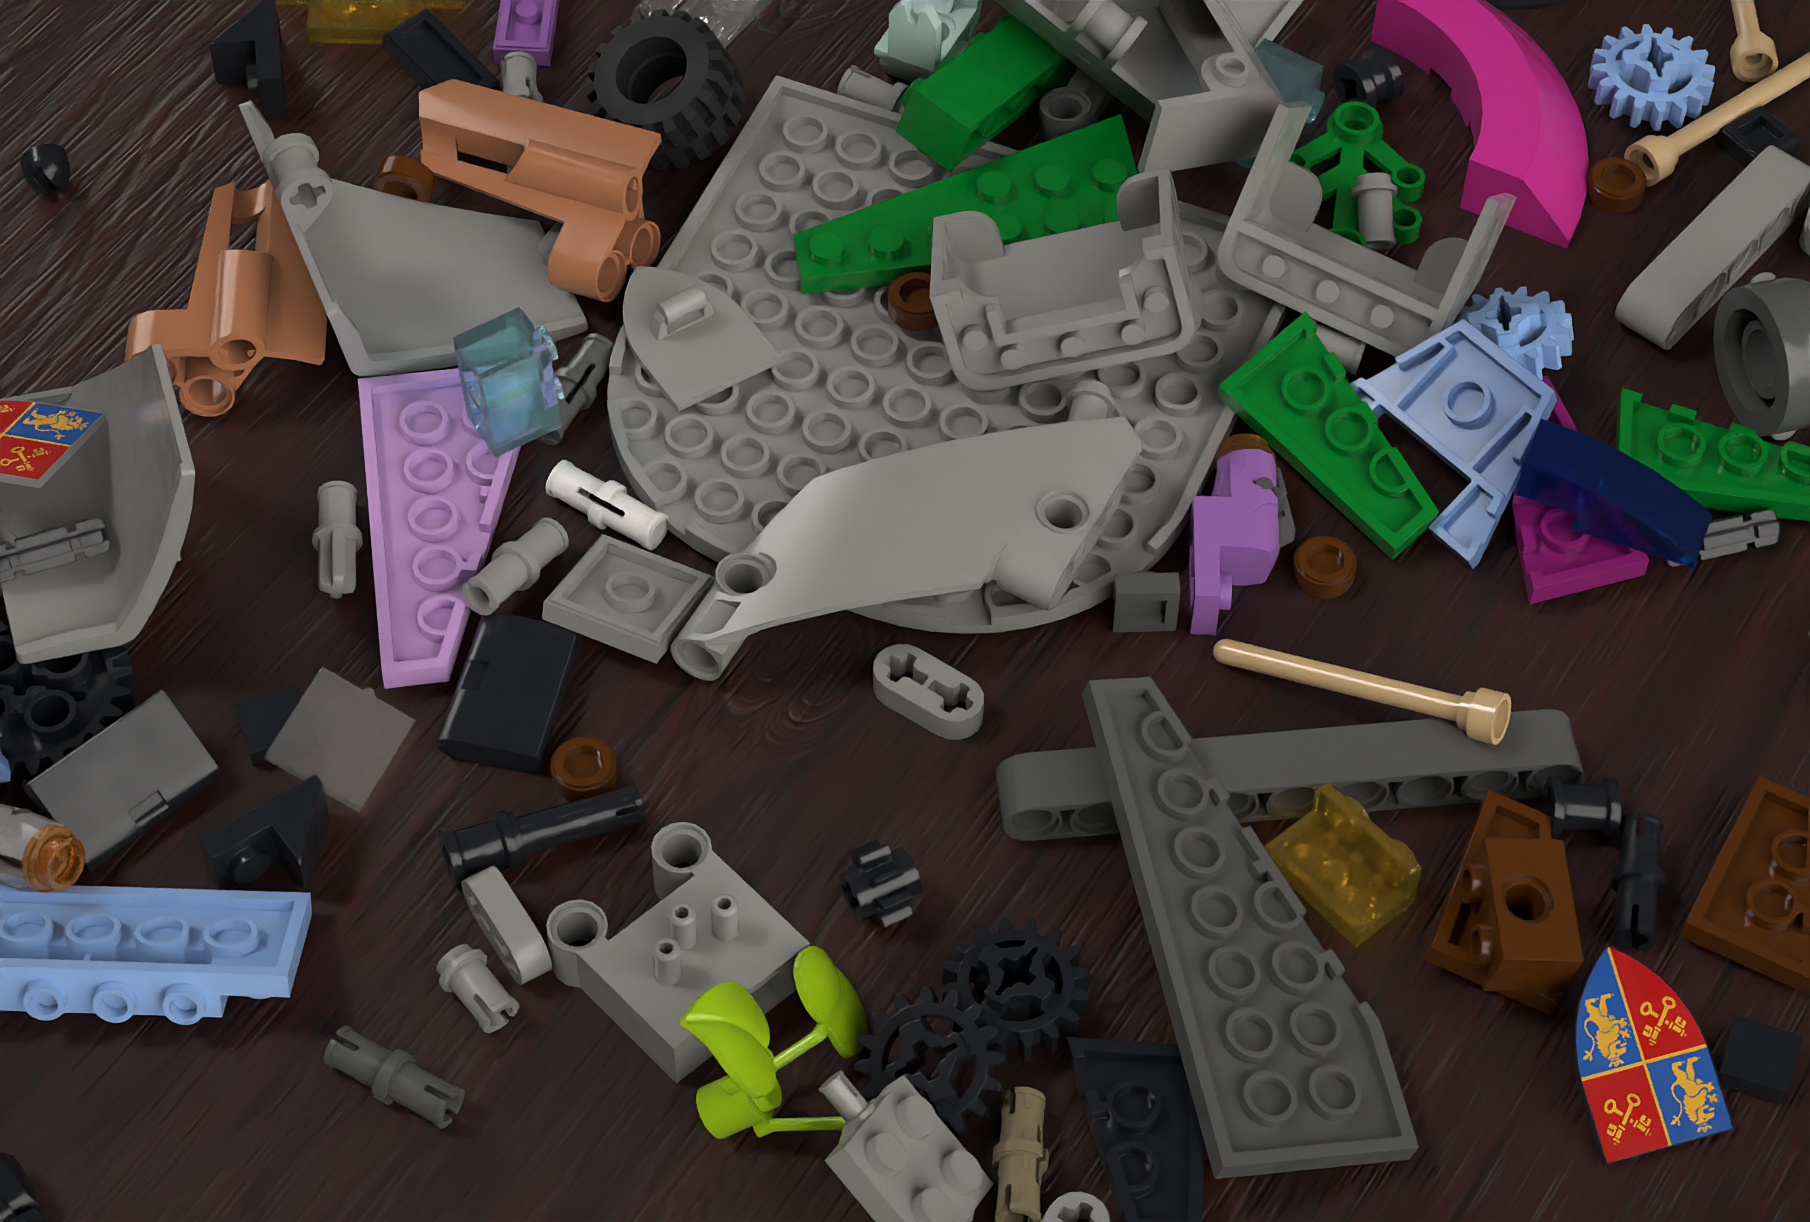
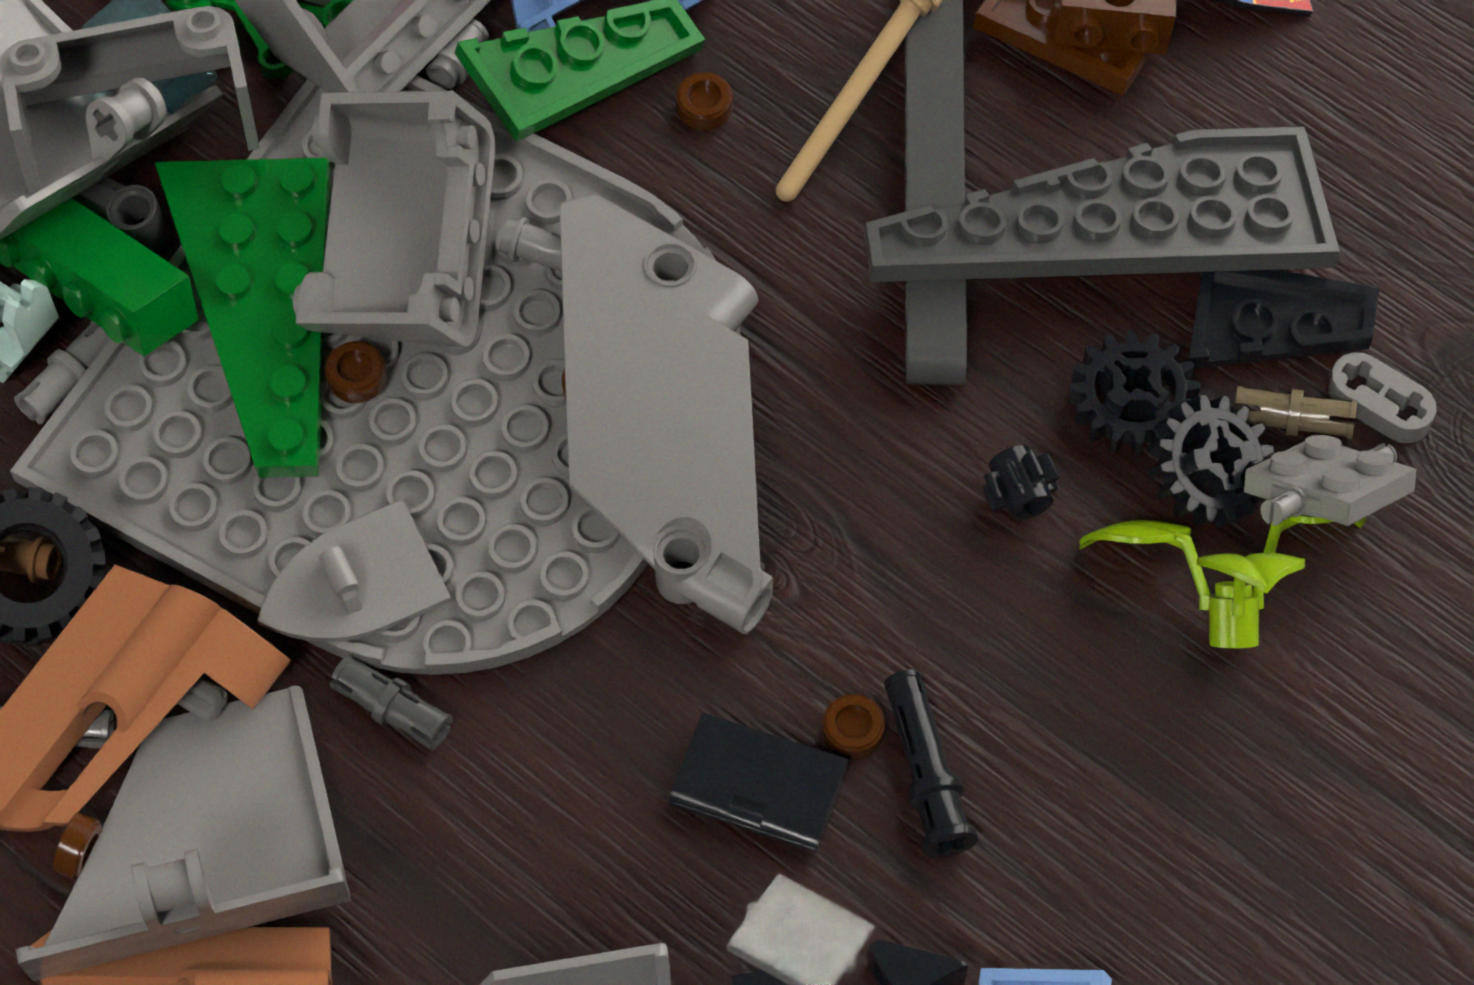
camera: 80 degrees left, 10 degrees up
(337, 538) = (551, 933): light grey axle -> none
(394, 1076) = (1178, 905): dark grey pin -> none
(430, 516) = (500, 835): lavender wing -> none
(466, 974) = (1080, 835): light grey pin -> none
(506, 925) = (1030, 797): light grey beam -> none
(509, 380) = (433, 726): clear light blue brick -> none
(515, 566) = (621, 762): light grey pin -> none
(575, 488) = (545, 680): white pin -> none
(627, 598) = (669, 667): light grey plate -> none
(697, 936) = (1087, 642): light grey piece -> none
(925, 695) = (794, 420): light grey beam -> none
(1145, 602) = (733, 235): dark grey plate -> none
(1236, 529) = (669, 155): medium lavender plate -> none
(1346, 866) = (1034, 129): clear yellow bracket -> none

